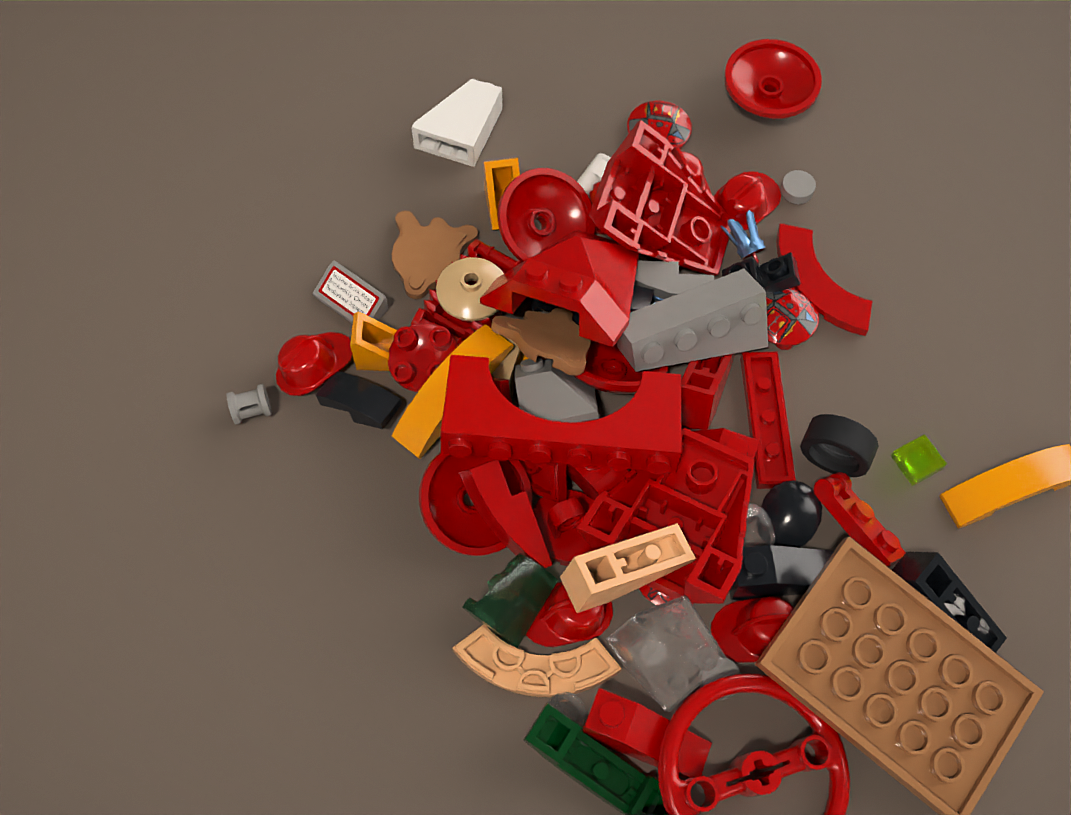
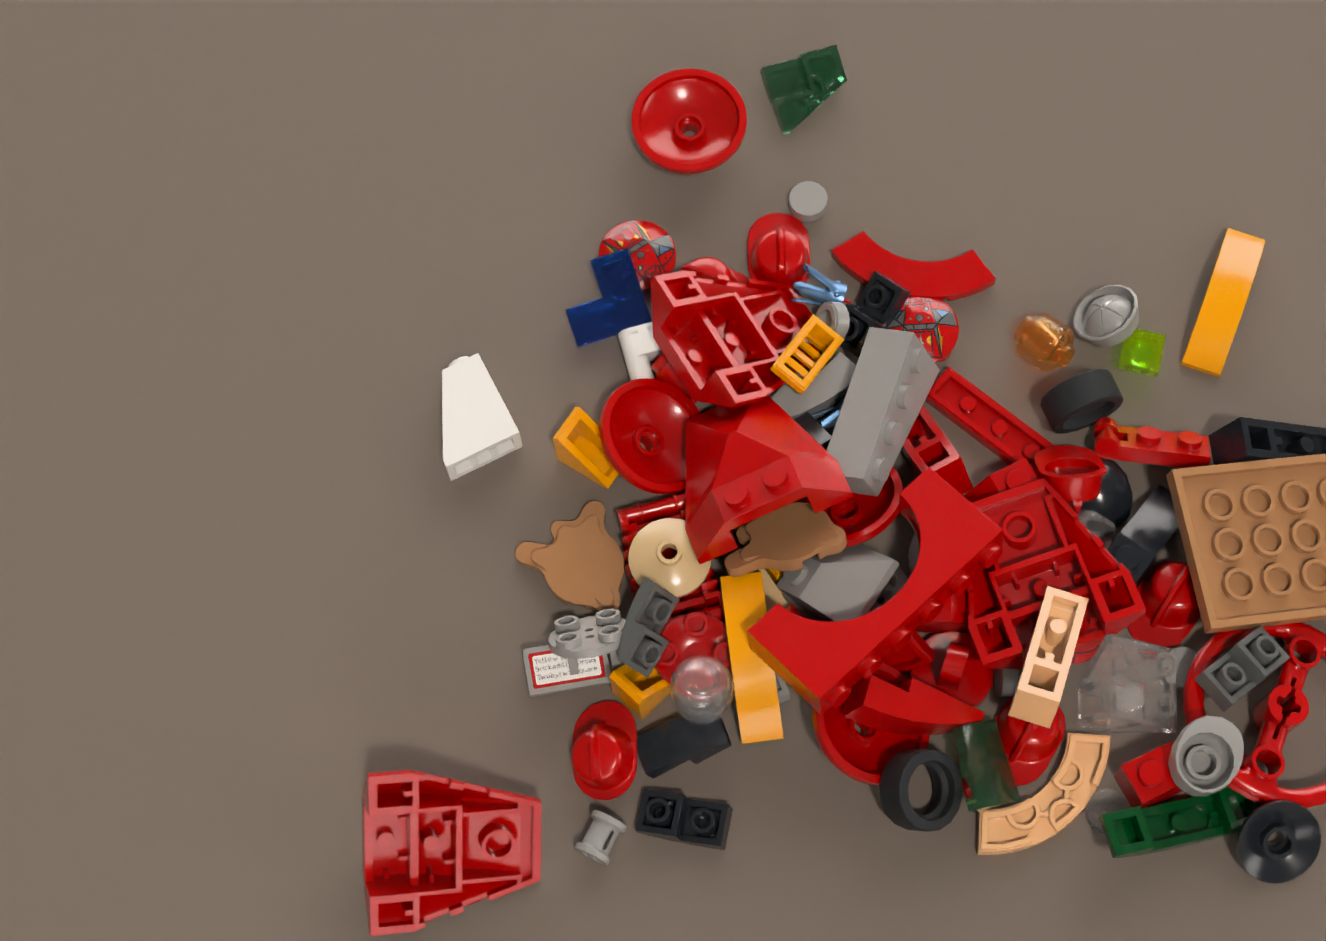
camera: 40 degrees left, 5 degrees up
(156, 315) = (441, 847): none -> red wedge
(308, 445) = (684, 820): none -> black slope
(371, 283) = (587, 637): none -> light grey plate
(398, 375) = (701, 689): none -> clear hair
(404, 305) = (640, 639): none -> dark grey slope
(436, 547) = (946, 796): none -> black tyre
(598, 137) = (620, 304): none -> clear blue tile
(660, 740) = (1206, 756): none -> light grey hat
(710, 248) = (822, 338): none -> light orange slope
(730, 257) = (835, 316): none -> light grey tile
(754, 713) = (1242, 668): none -> dark grey slope
(778, 479) = (1072, 472): none -> red piece
(857, 393) = (1044, 342): none -> clear orange head
(870, 123) = (802, 84): none -> clear green slope
(918, 416) = (1107, 315): none -> light grey hat

